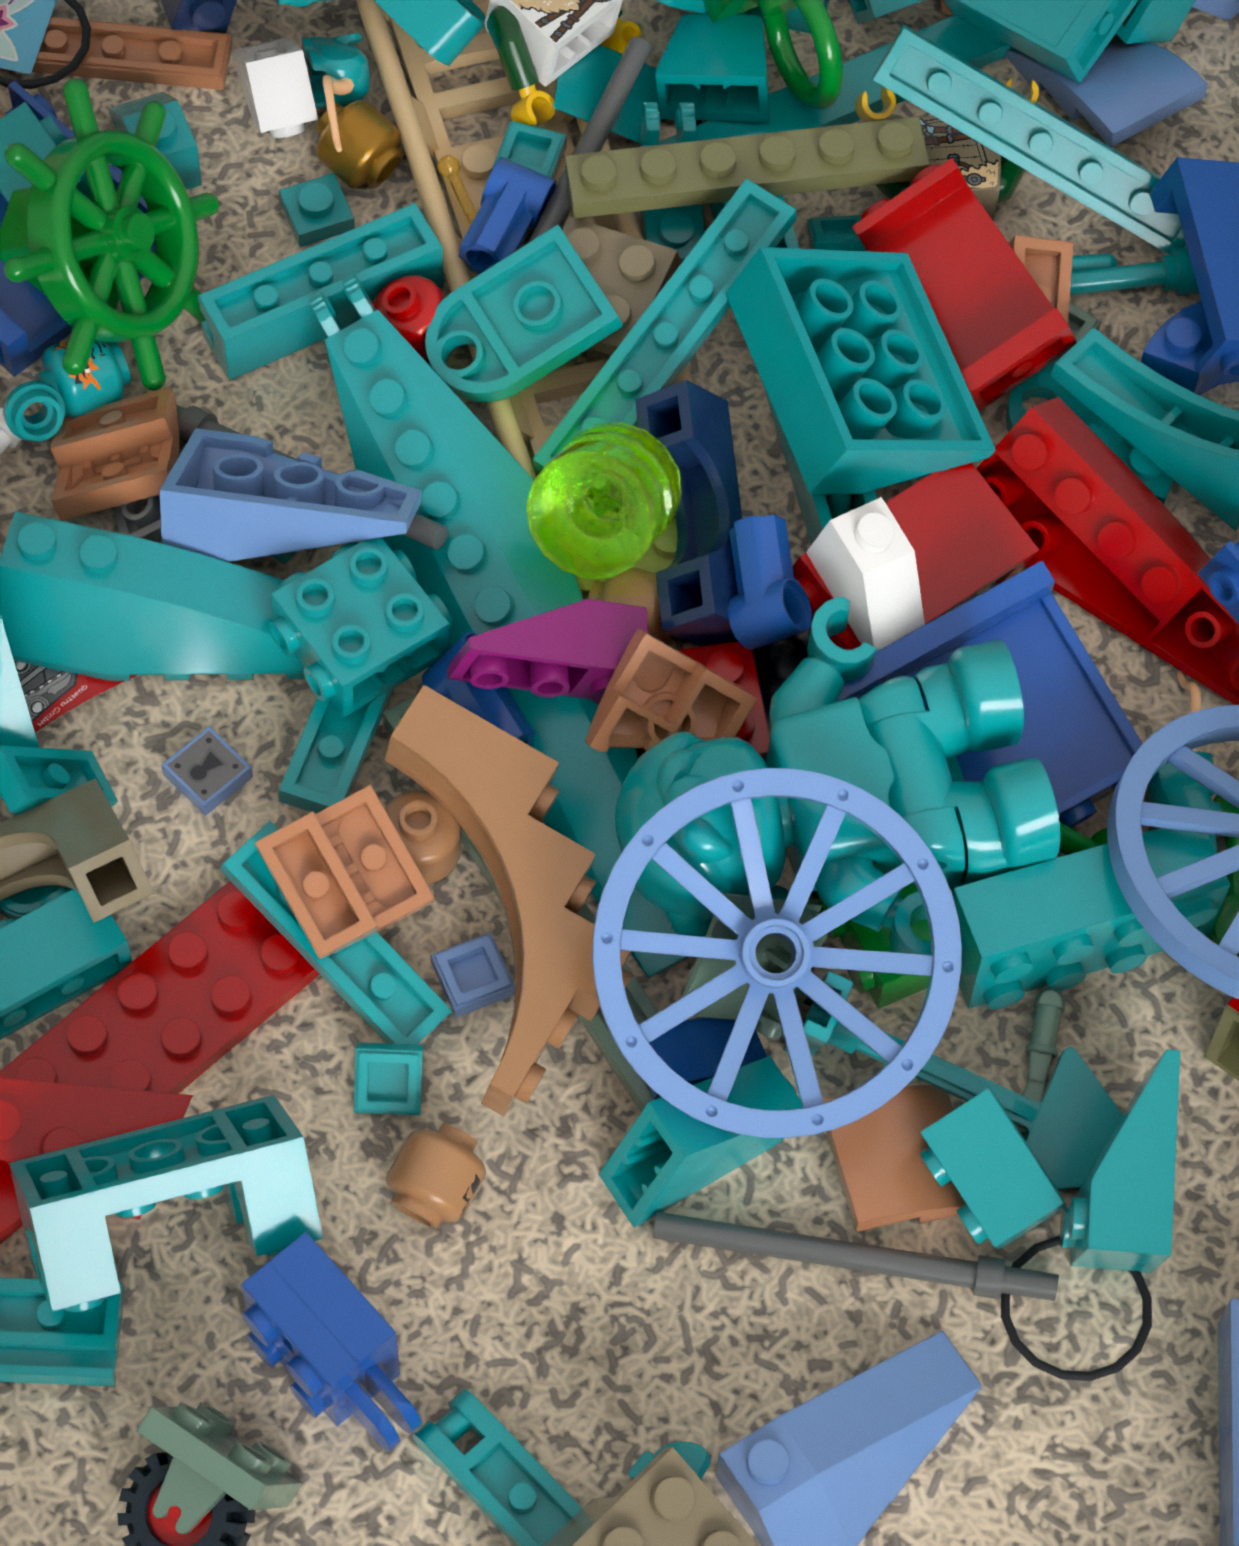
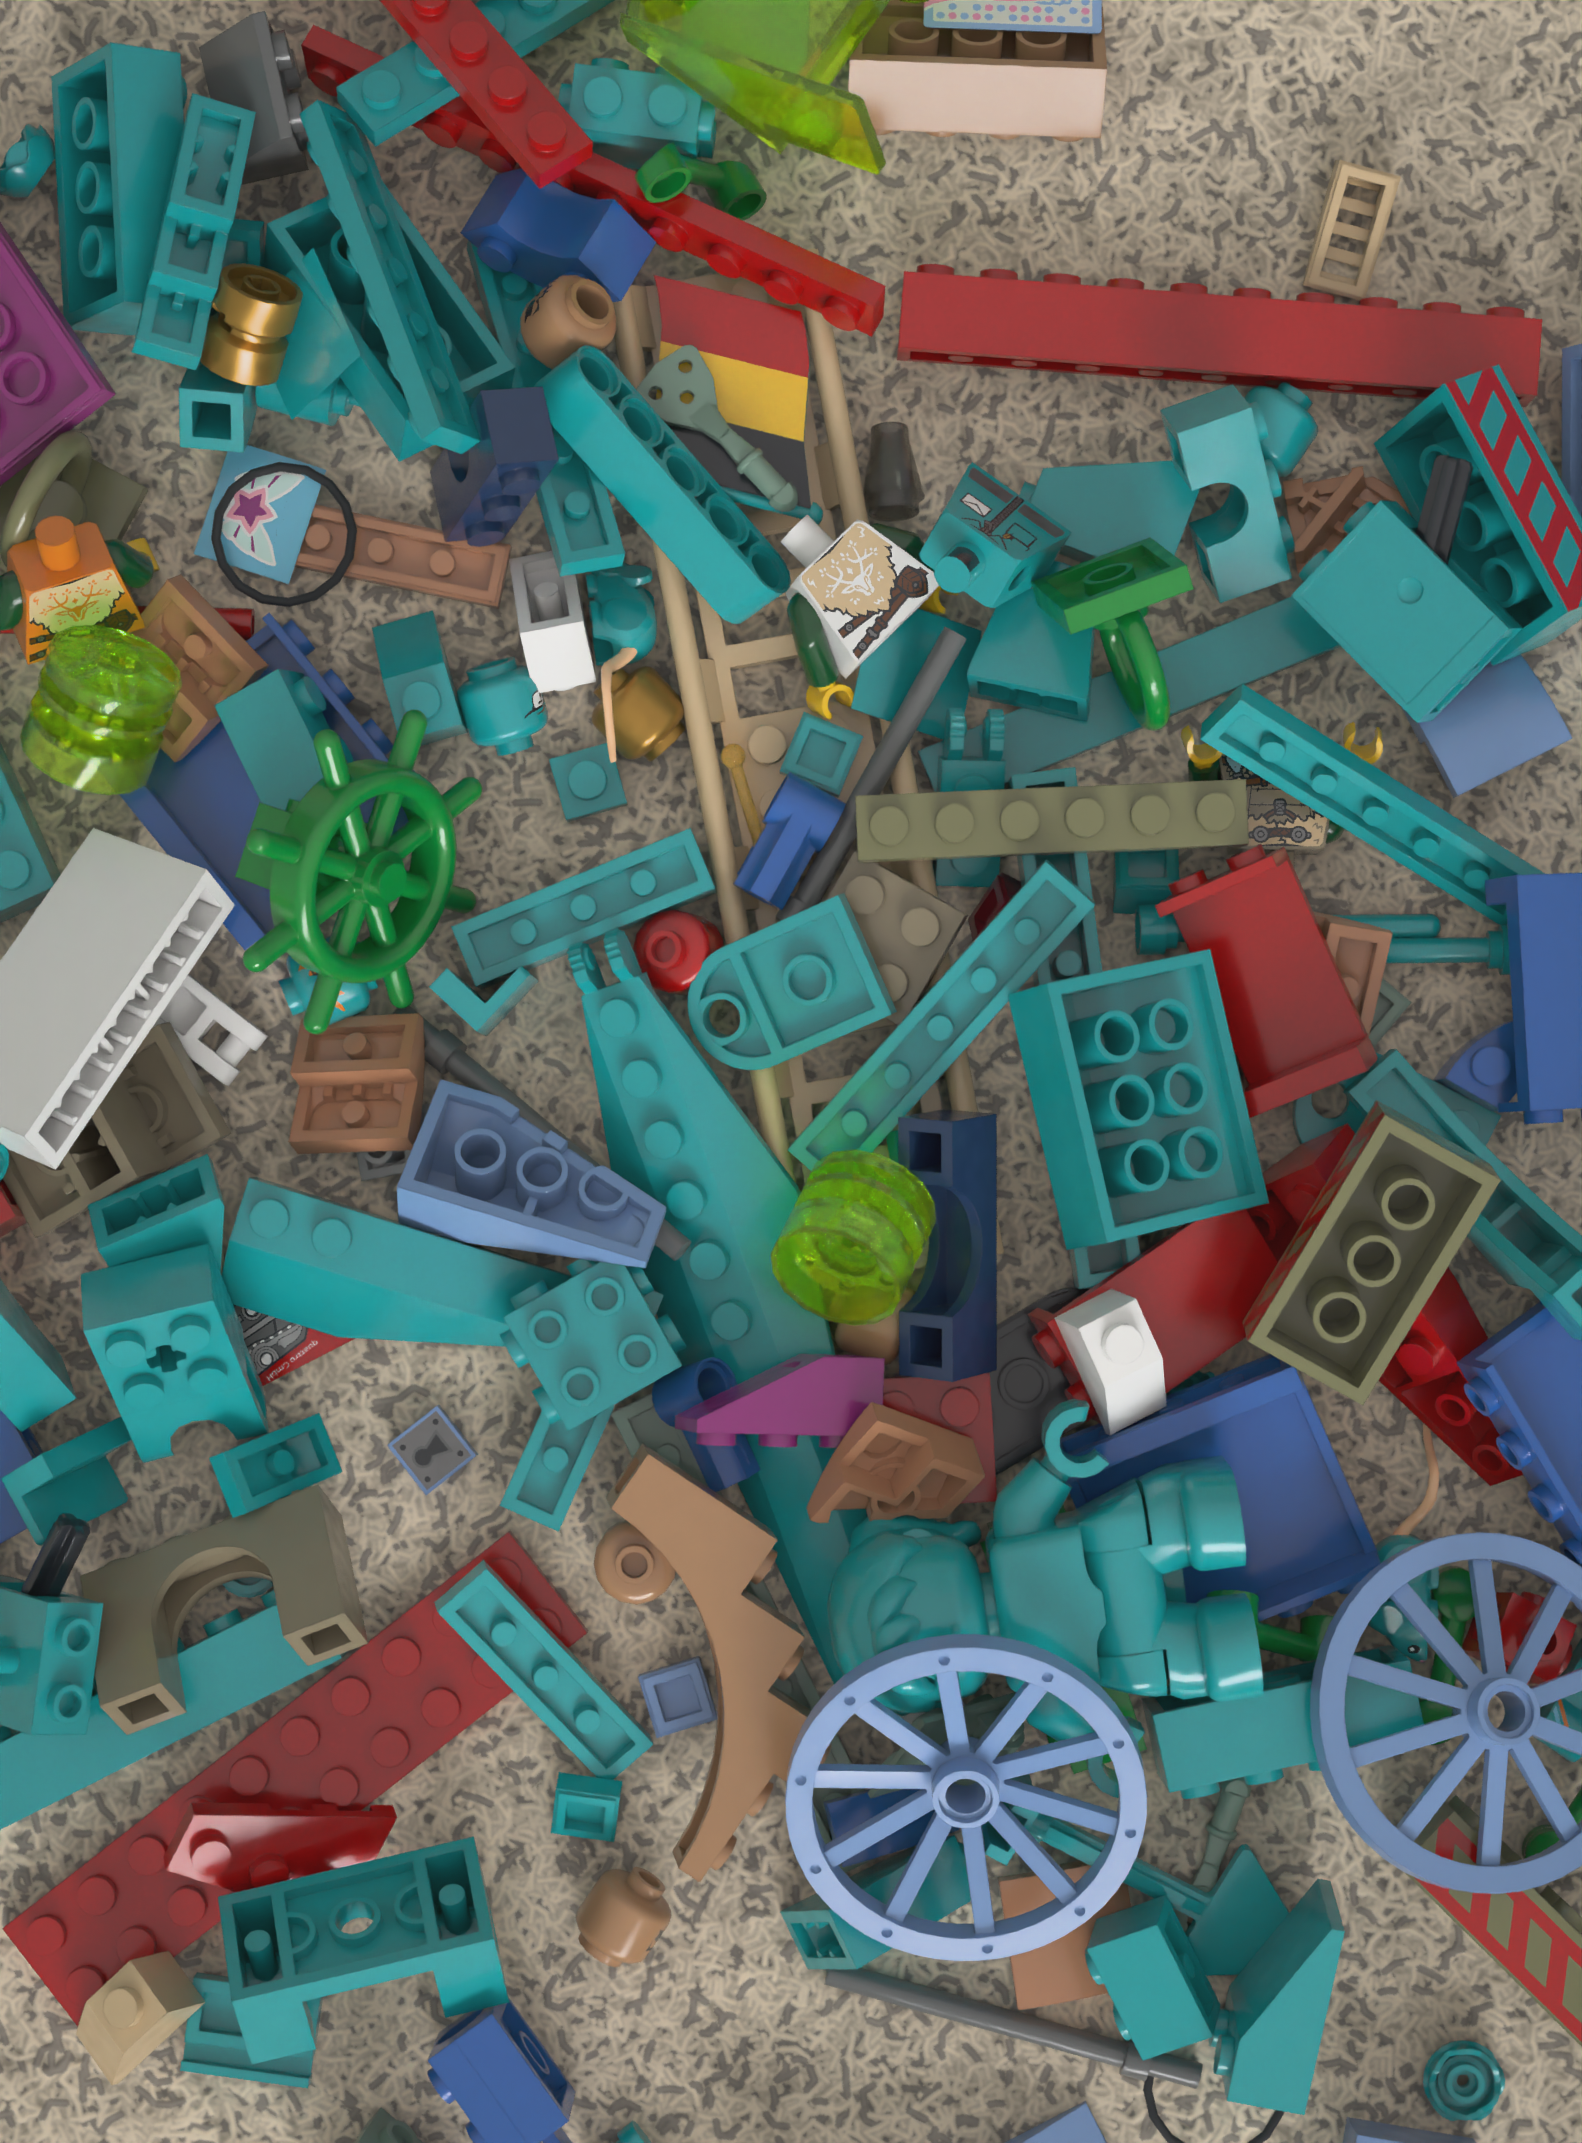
camera: 10 degrees right, 25 degrees up
(42, 424) = (275, 1031): teal plate -> none
(232, 368) = (477, 1012): none -> teal panel
(233, 148) = (502, 706): none -> teal head
(345, 872) = (556, 1624): nougat slope -> none
(769, 598) = (1008, 1359): blue piece -> none
(1097, 454) = (1370, 1252): none -> olive brick

